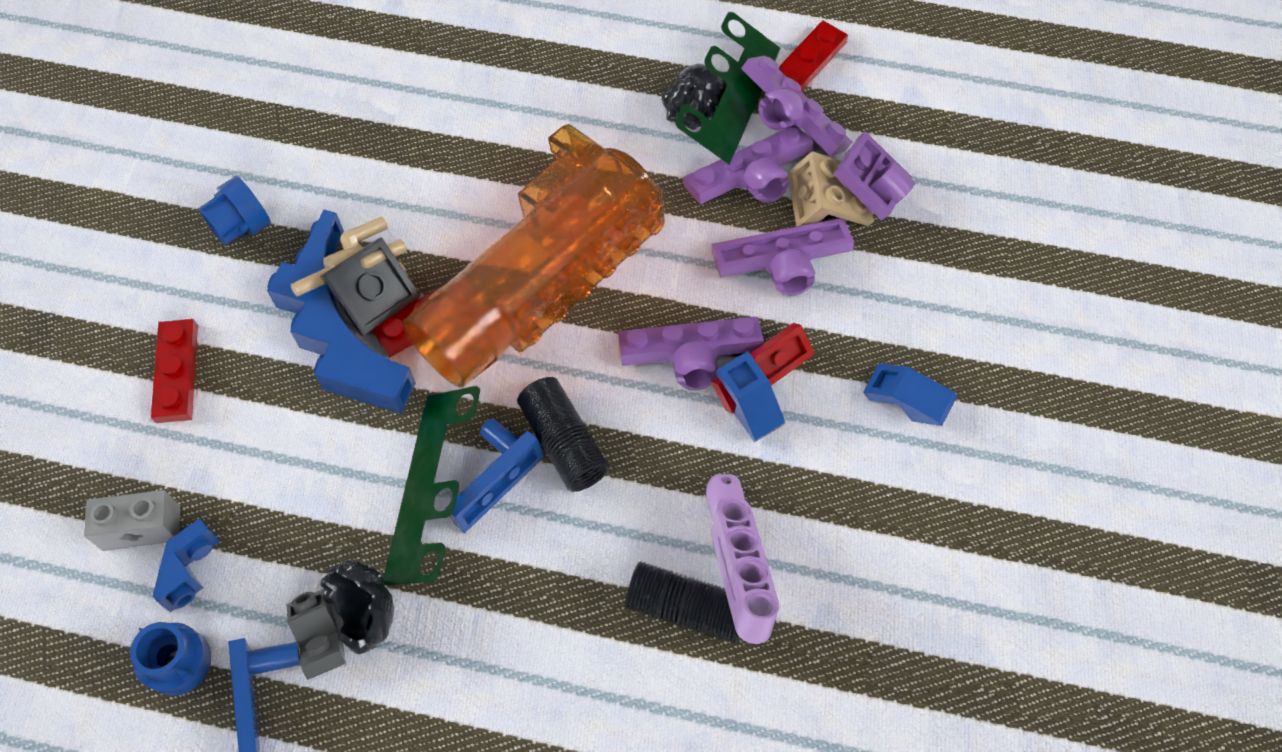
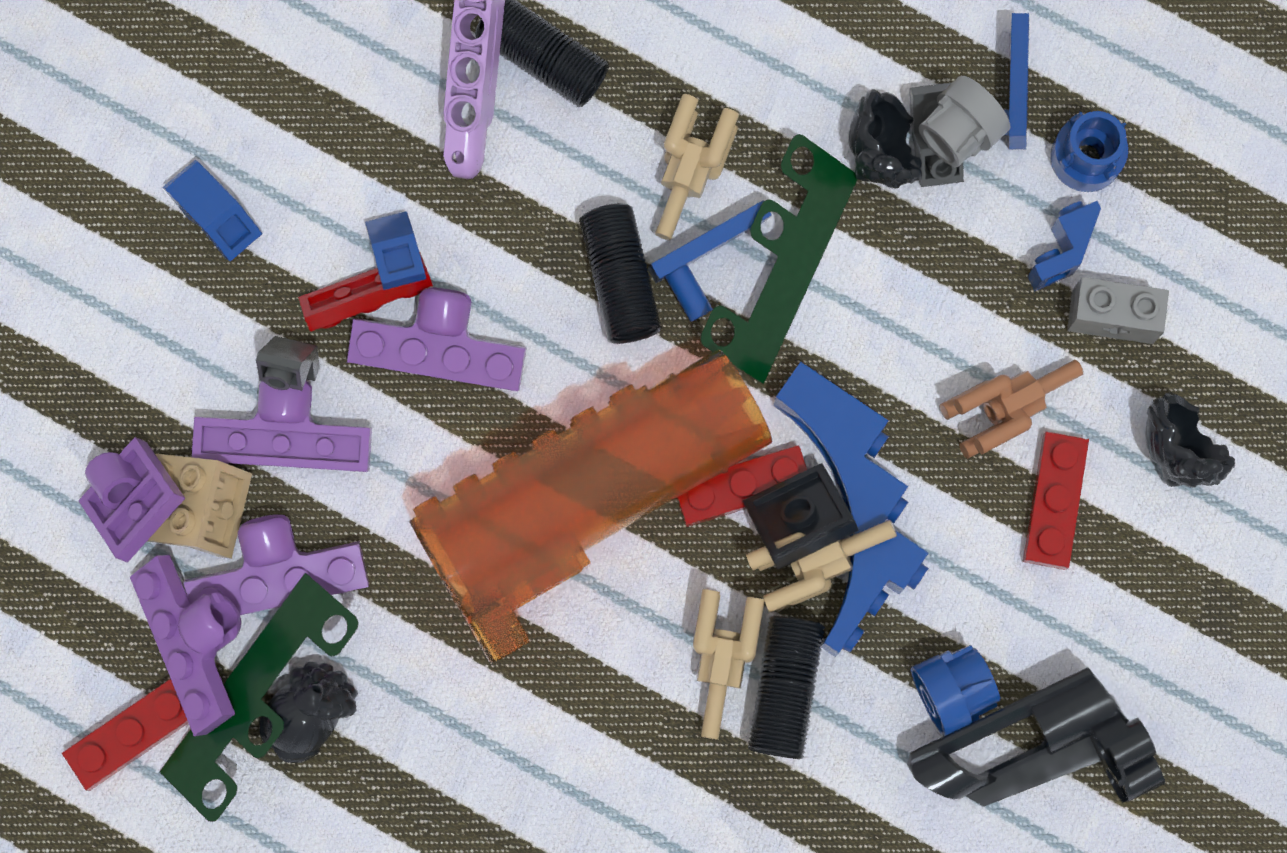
camera: 165 degrees left, 15 degrees up
(65, 425) = (1179, 446): none -> black hair
(153, 217) = (1078, 729): none -> black panel
(220, 422) = (1007, 405): none -> nougat plant
(285, 624) = (964, 122): none -> light grey piece
(359, 181) = (786, 698): none -> black piece
(411, 195) = (723, 654): none -> tan plant
(527, 543) = (692, 160): none -> tan plant
(799, 284) = (287, 363): none -> dark grey slope

